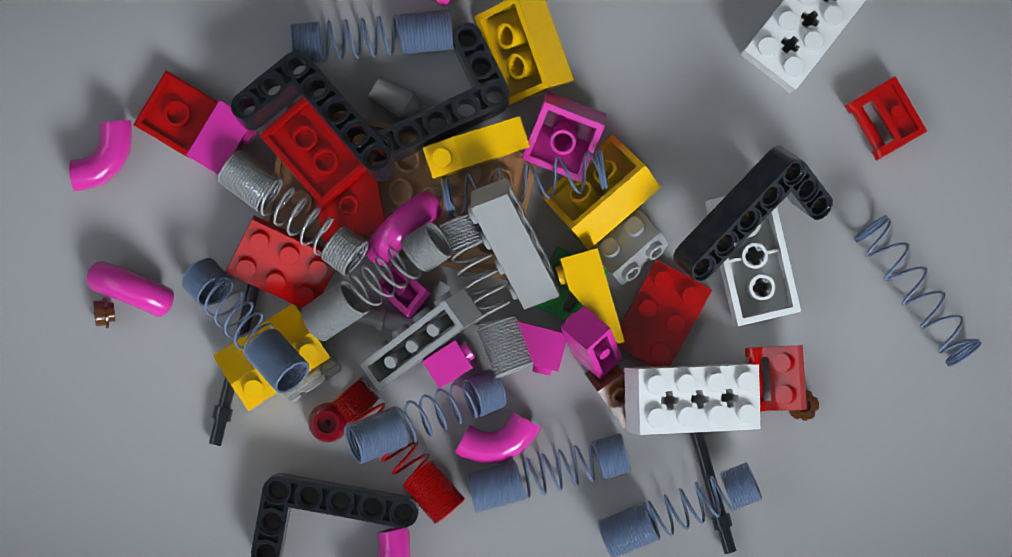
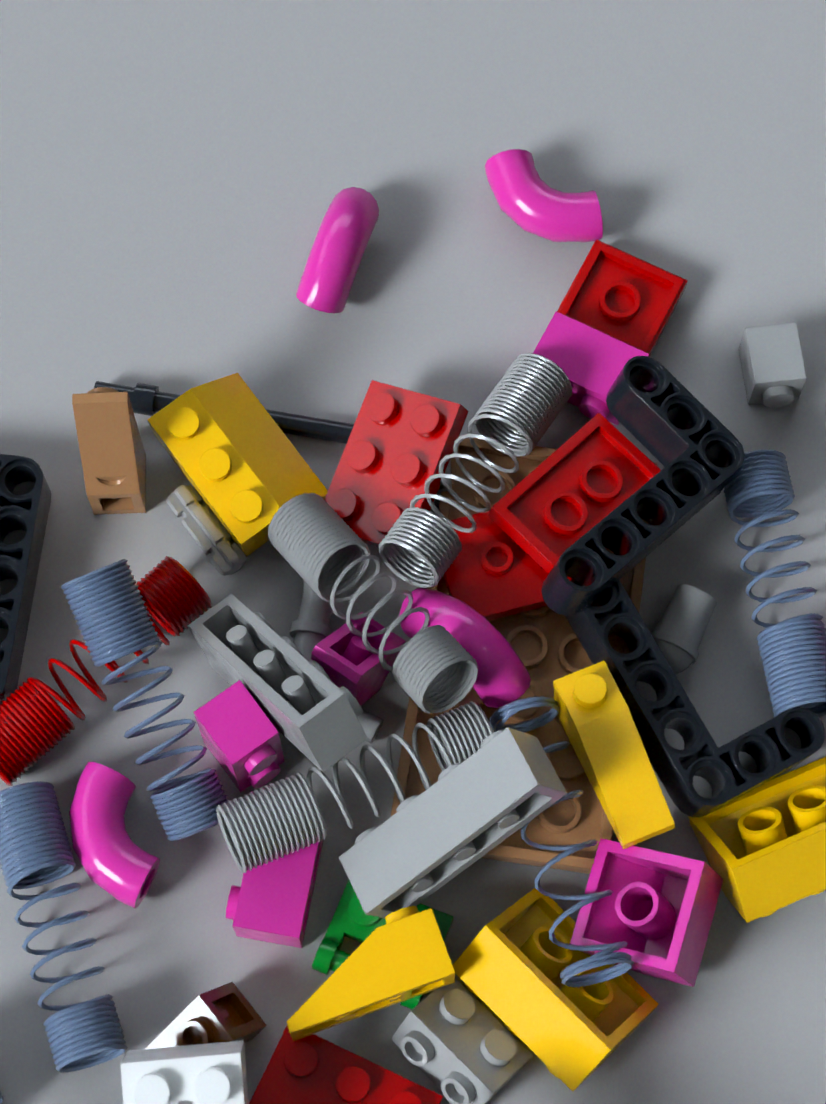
camera: 85 degrees right, 20 degrees down
(103, 312) = (298, 218): reddish brown plate -> none
(227, 23) = (772, 364): none -> light grey brick
(267, 434) = (110, 451): none -> medium nougat slope
(269, 350) = (249, 433): sand blue piece -> none
(317, 423) = (135, 543): dark red plate -> none
(591, 342) = (286, 978): dark pink brick -> none

